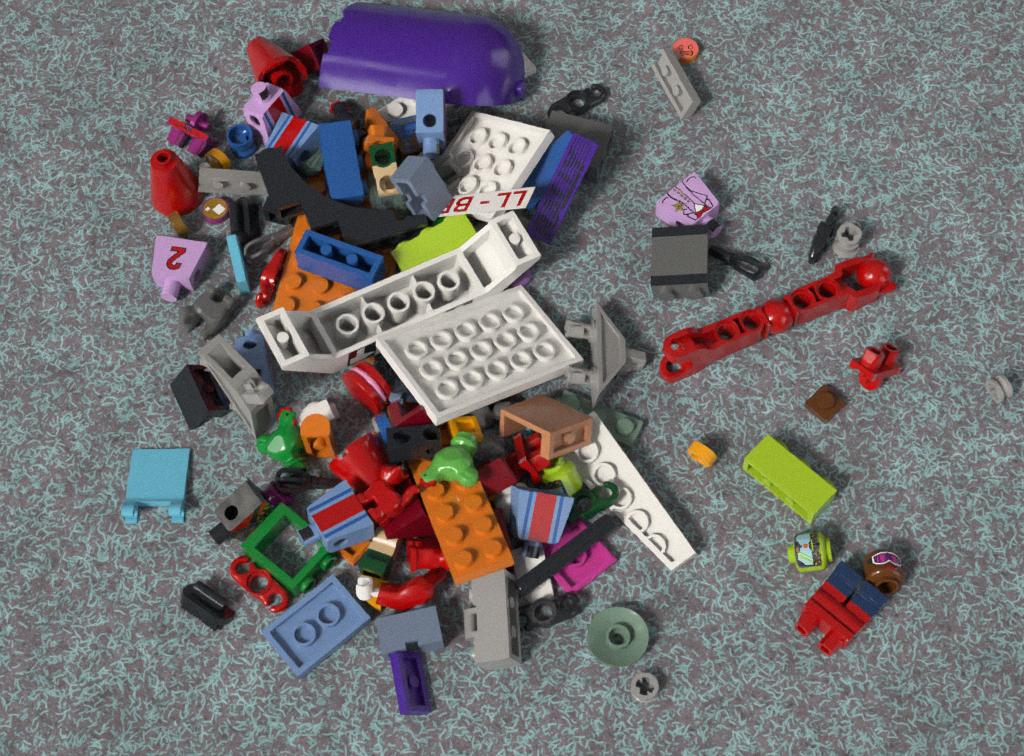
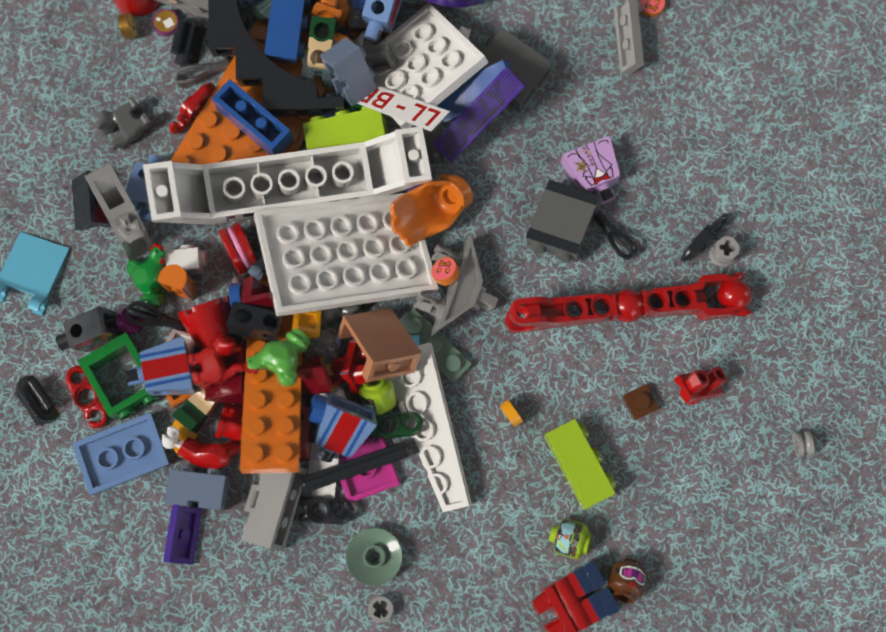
camera: 15 degrees right, 15 degrees up
(178, 264) = (113, 67): lavender torso -> none
(238, 264) = (167, 85): medium azure tile -> none
(508, 502) = (317, 408): none -> blue tile
(547, 287) = (430, 208): none -> orange hair
(585, 339) = (445, 271): none -> tile
(590, 101) = (543, 27): black piece -> none

